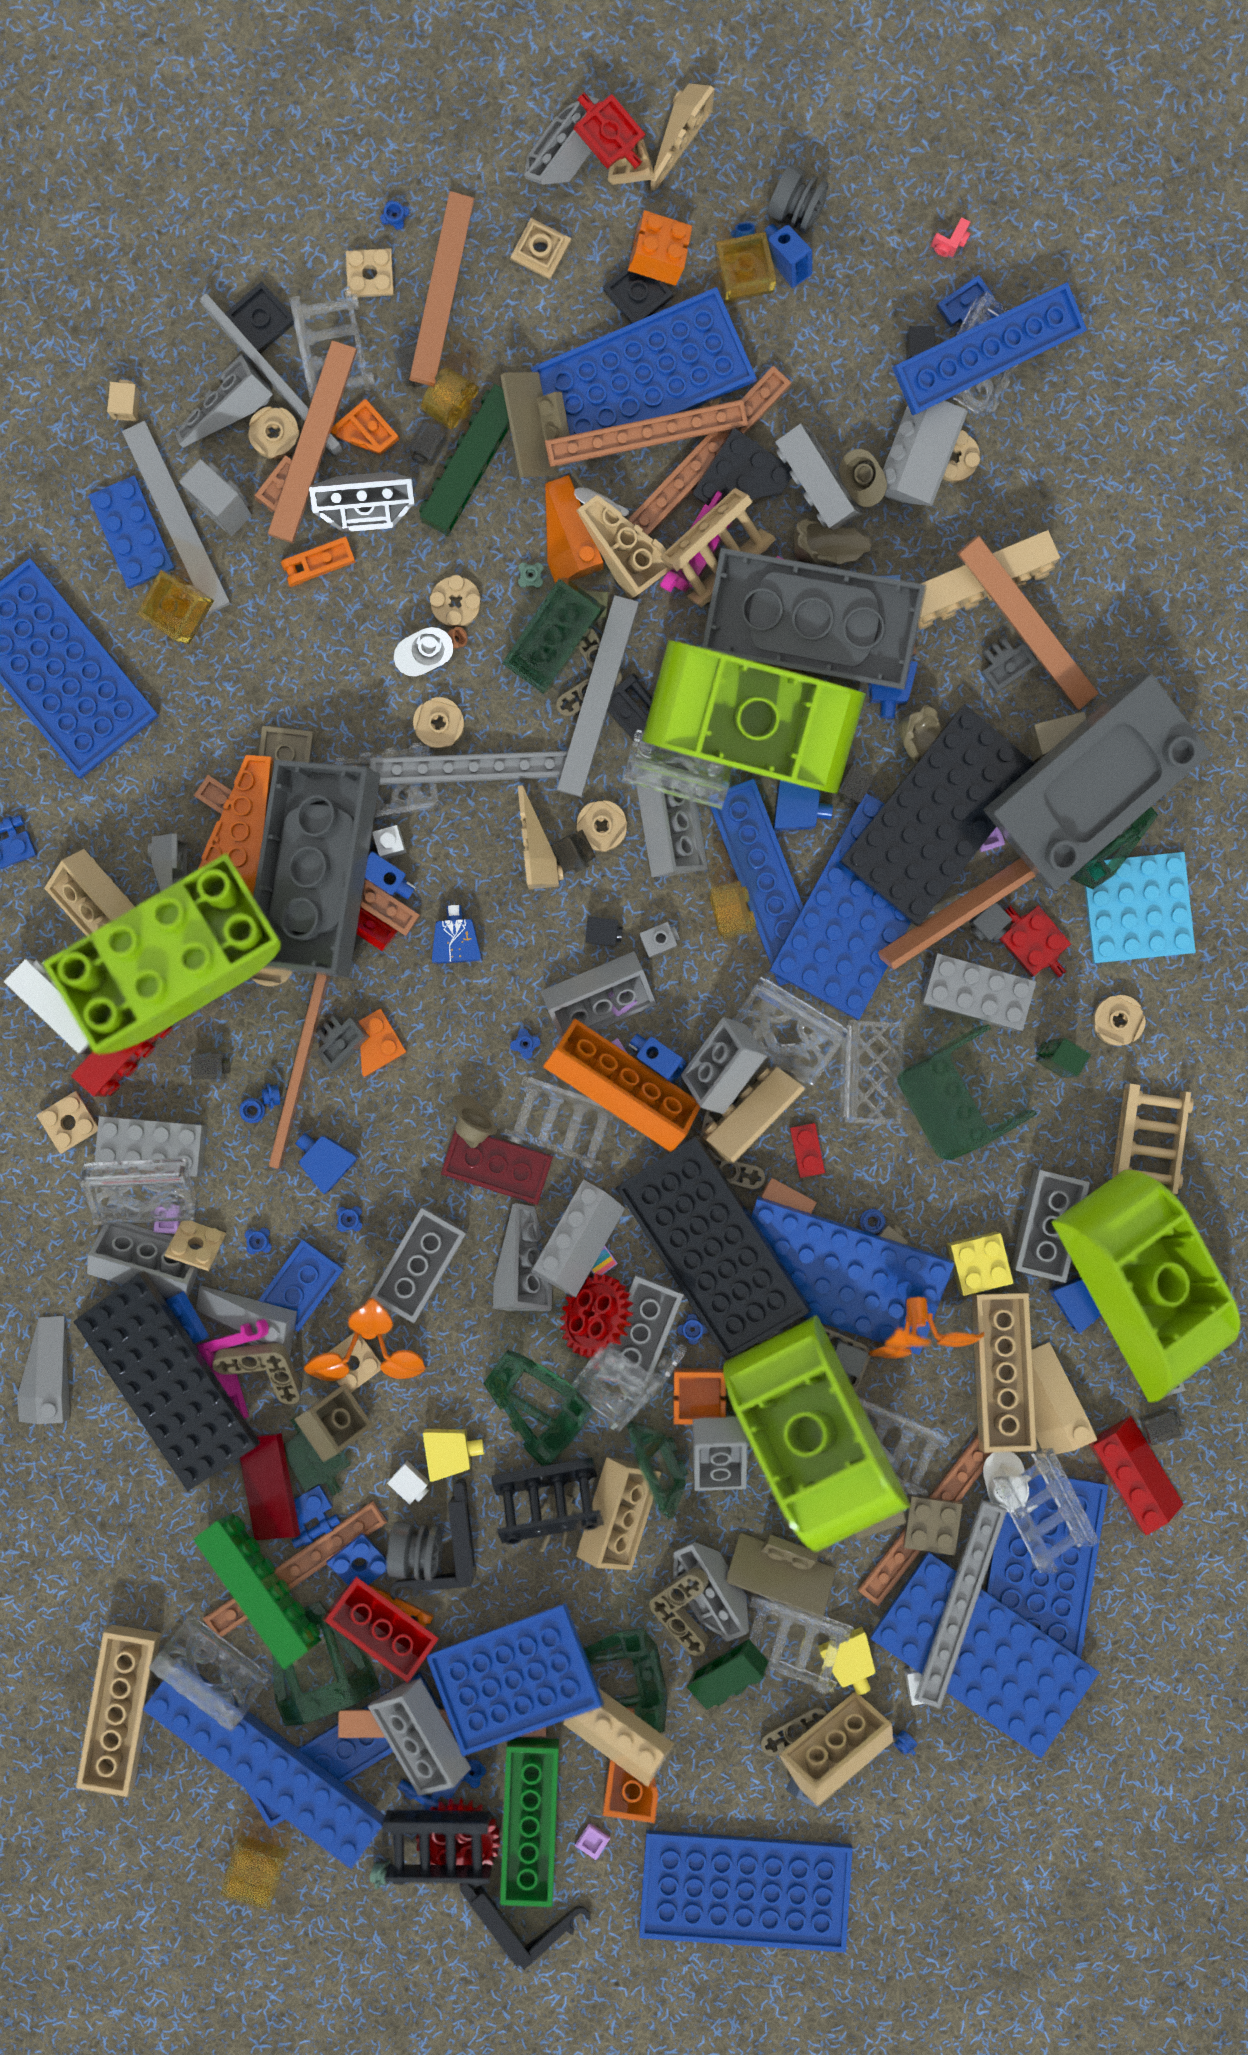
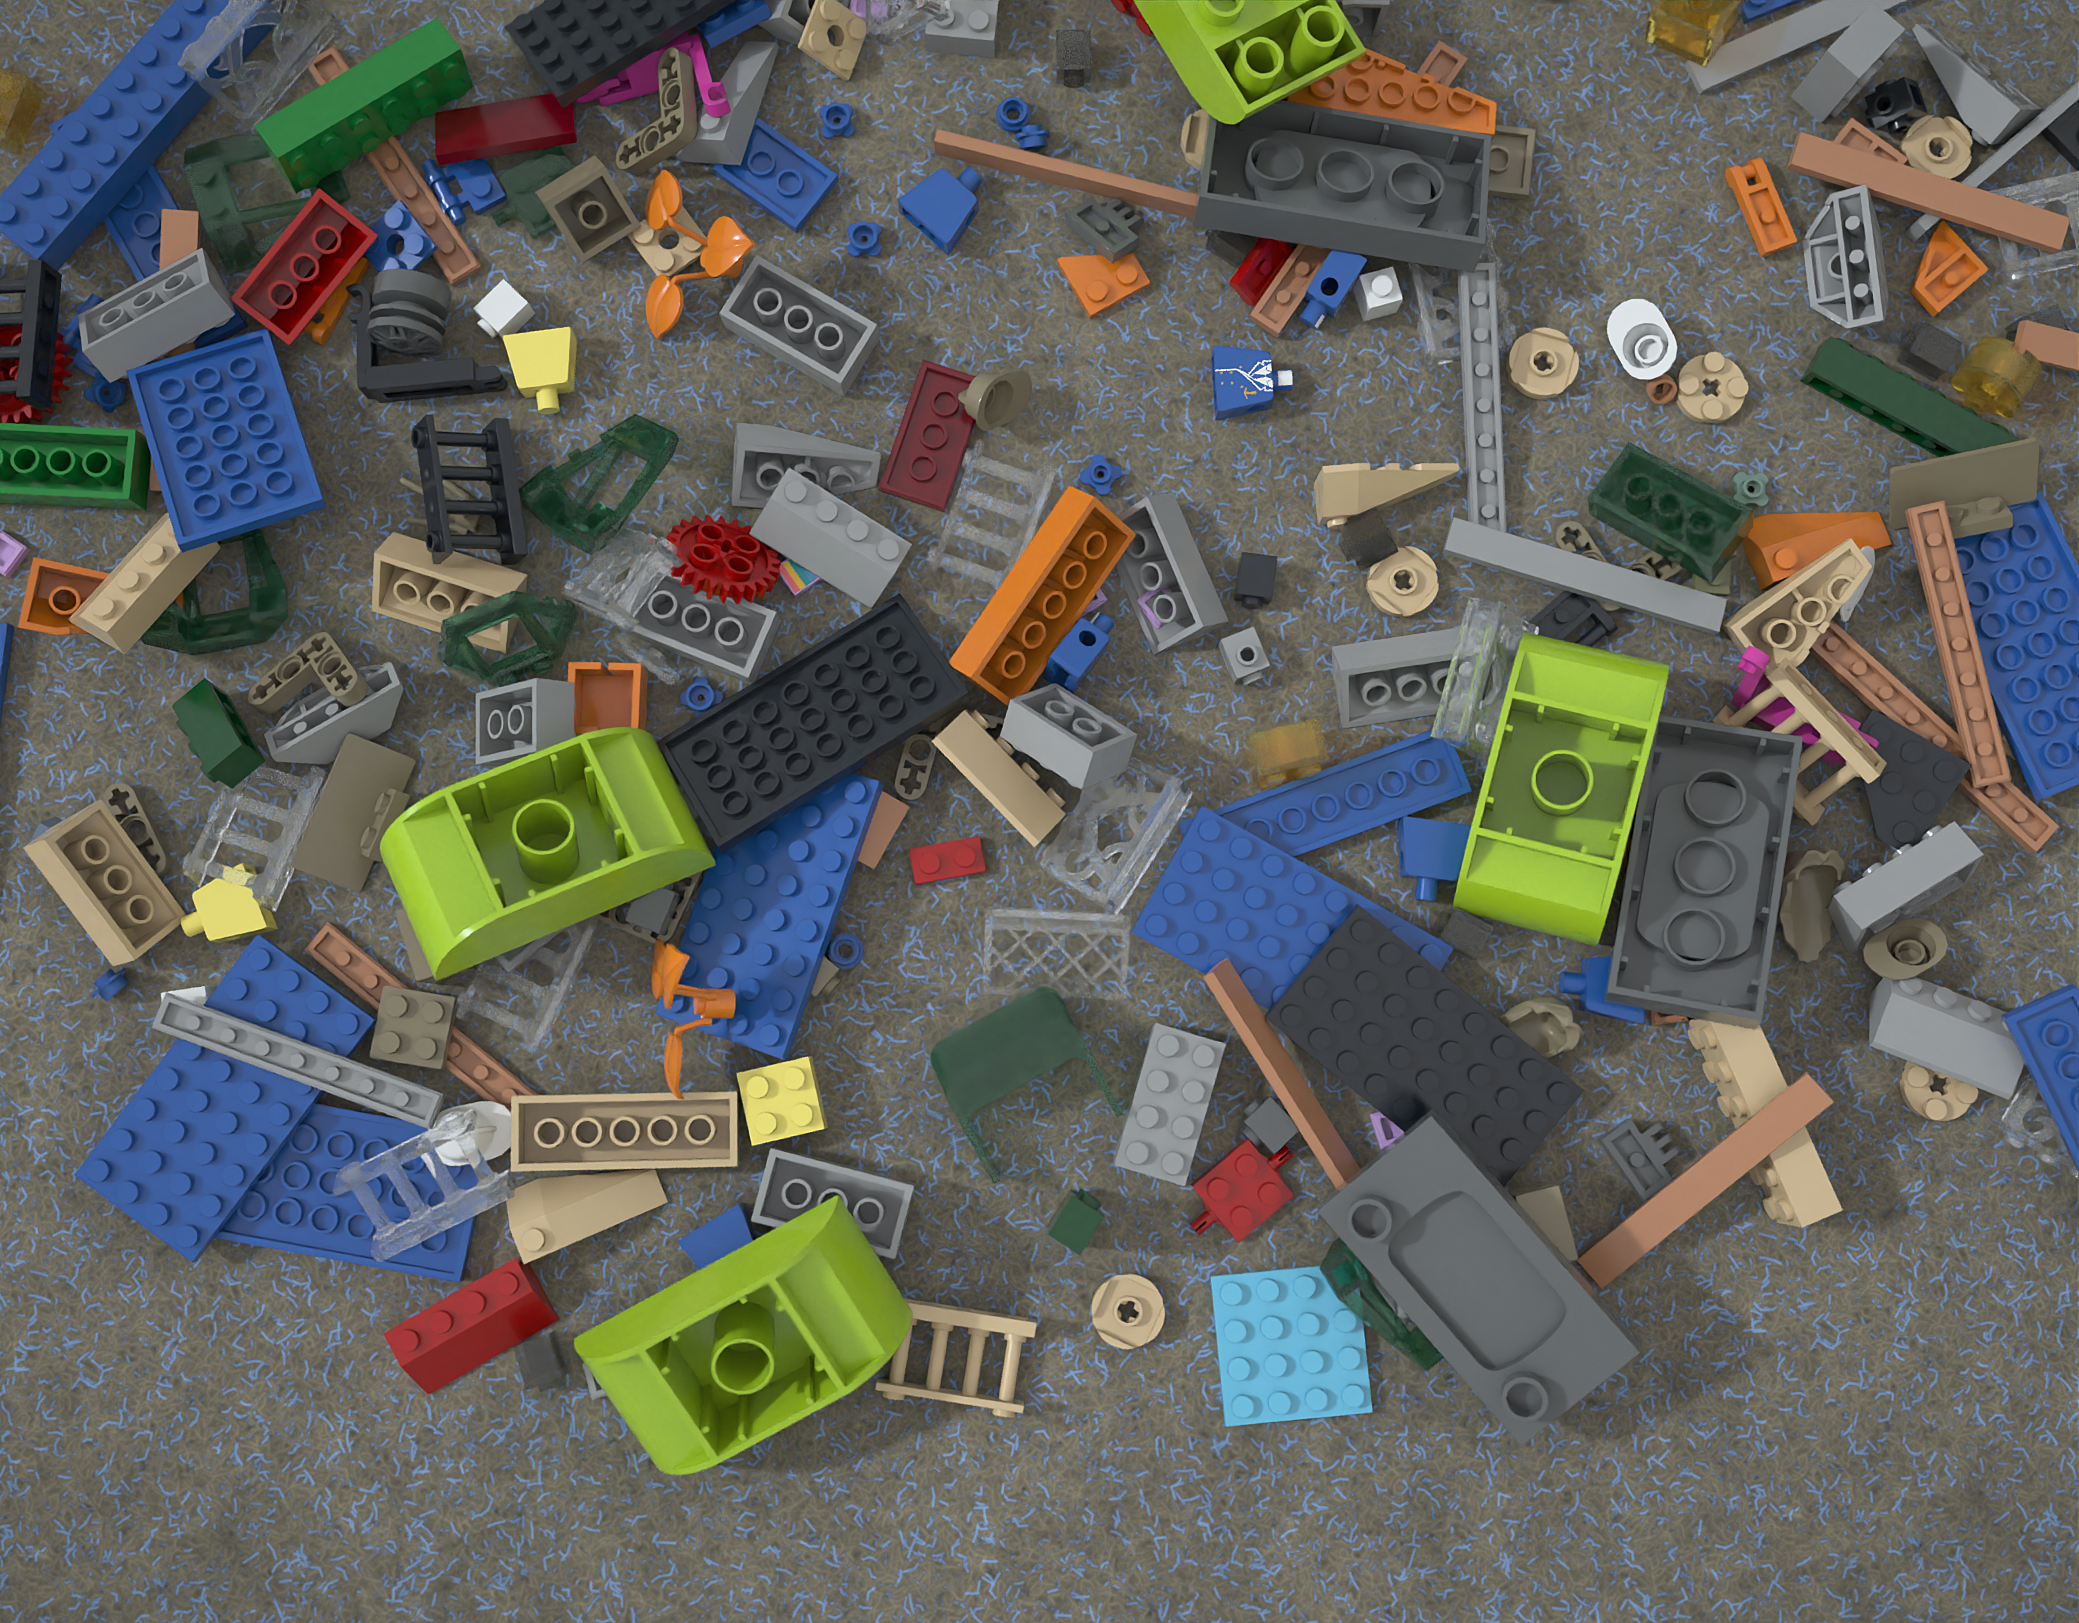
camera: 90 degrees right, 5 degrees down
(242, 462) = (1895, 105): none -> black brick

